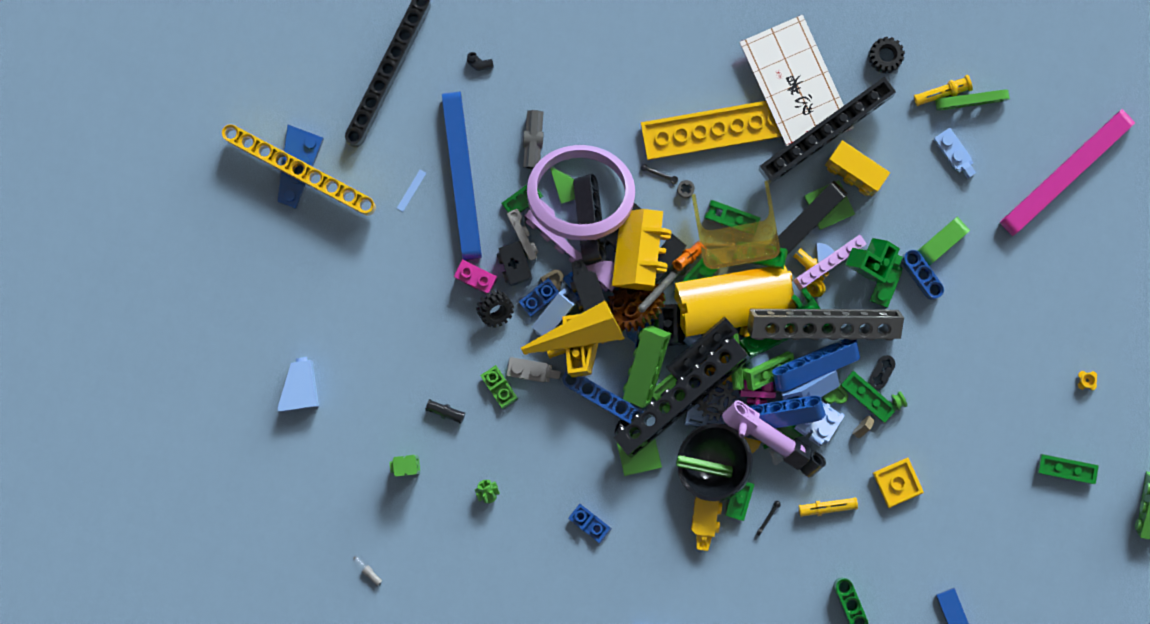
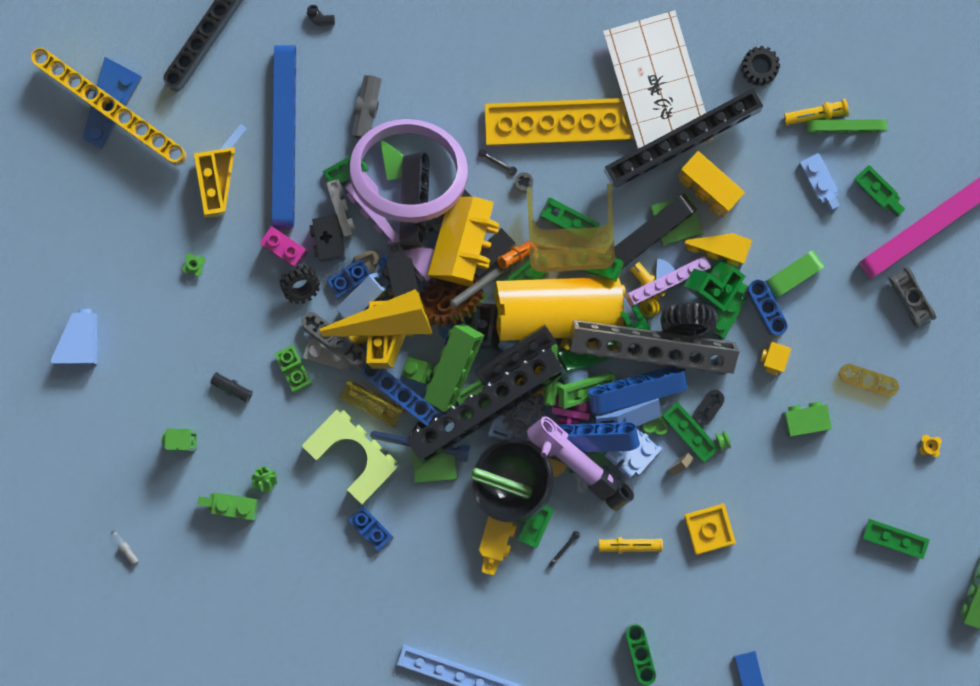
camera: 10 degrees right, 0 degrees up
(399, 307) = (190, 259): none -> bright green plate
(403, 224) = (213, 180): none -> yellow wedge
(459, 519) = (231, 505): none -> bright green hinge
(531, 359) = (332, 342): none -> dark grey beam
(575, 409) = (371, 403): none -> clear yellow plate
(589, 465) = (340, 428): none -> yellowish green arch
(614, 373) = (418, 370): none -> bright green bracket
(662, 443) = (460, 452): none -> dark blue piece
(854, 294) = (688, 319): none -> black gear
(879, 224) = (726, 247): none -> yellow slope
(936, 319) = (775, 358): none -> yellow brick
(972, 372) = (807, 420): none -> bright green brick
(1009, 154) = (879, 190): none -> green hinge
(1010, 320) = (881, 390): none -> clear yellow beam
(1061, 254) = (921, 304): none -> dark grey piece

